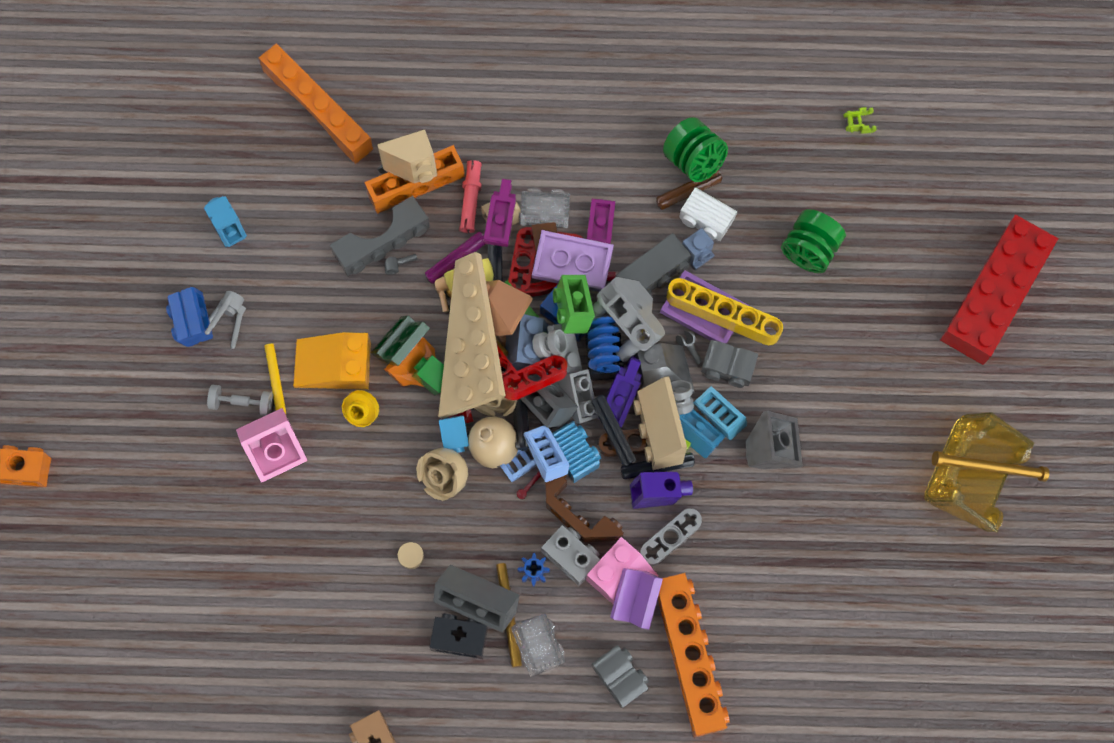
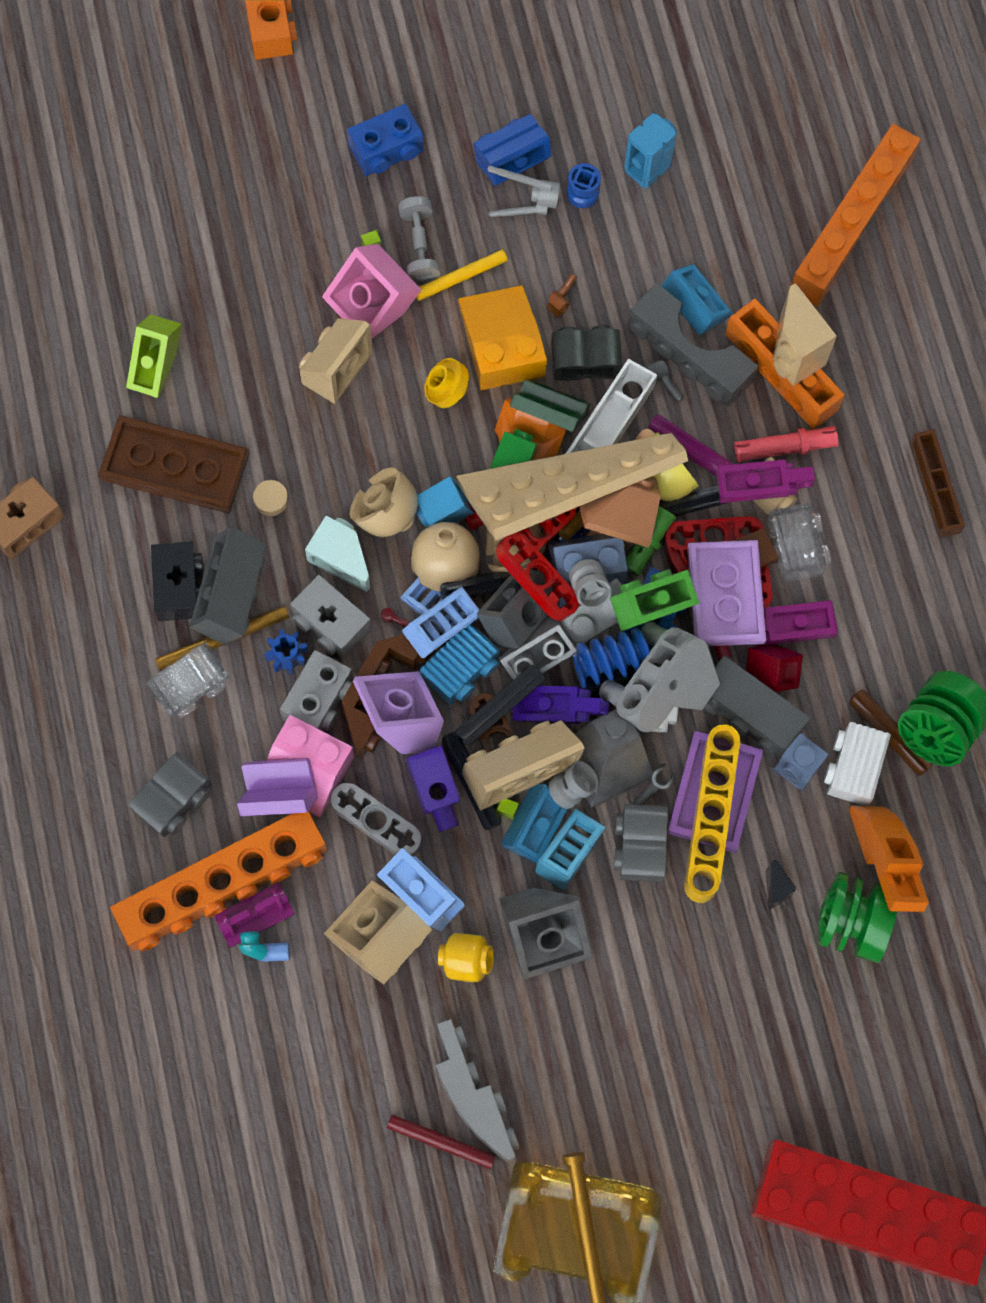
camera: 75 degrees right, 0 degrees up
(151, 405) = (385, 140): none -> blue brick
(229, 436) = (370, 238): none -> lime piece
(235, 281) = (578, 191): none -> blue wheel
(273, 615) = (153, 354): none -> lime slope
(317, 480) = (337, 358): none -> tan slope
(318, 318) = (557, 302): none -> dark orange hand
(342, 223) = (699, 300): none -> dark azure slope
(363, 621) = (174, 464): none -> reddish brown tile
(365, 307) = (586, 353): none -> pearl dark grey brick
(419, 302) = (615, 409): none -> white piece
(468, 514) = (338, 551): none -> light aqua slope
(522, 520) = (322, 600): none -> light grey brick
(526, 110) = (937, 483): none -> reddish brown piece
(600, 496) = (401, 710): none -> lavender slope
(628, 247) = (775, 666): none -> dark red panel
(719, 636) = (254, 914): none -> magenta hinge
(737, 512) = (421, 890): none -> light blue panel
(747, 633) = (265, 951): none -> arm
(750, 553) = (378, 931): none -> tan slope
(777, 205) = (894, 855): none -> orange slope
(778, 287) = (778, 885): none -> black slope
(782, 498) = (466, 957): none -> yellow head
(884, 516) = (477, 1108): none -> light grey slope
(900, 547) = (441, 1141): none -> dark red bar

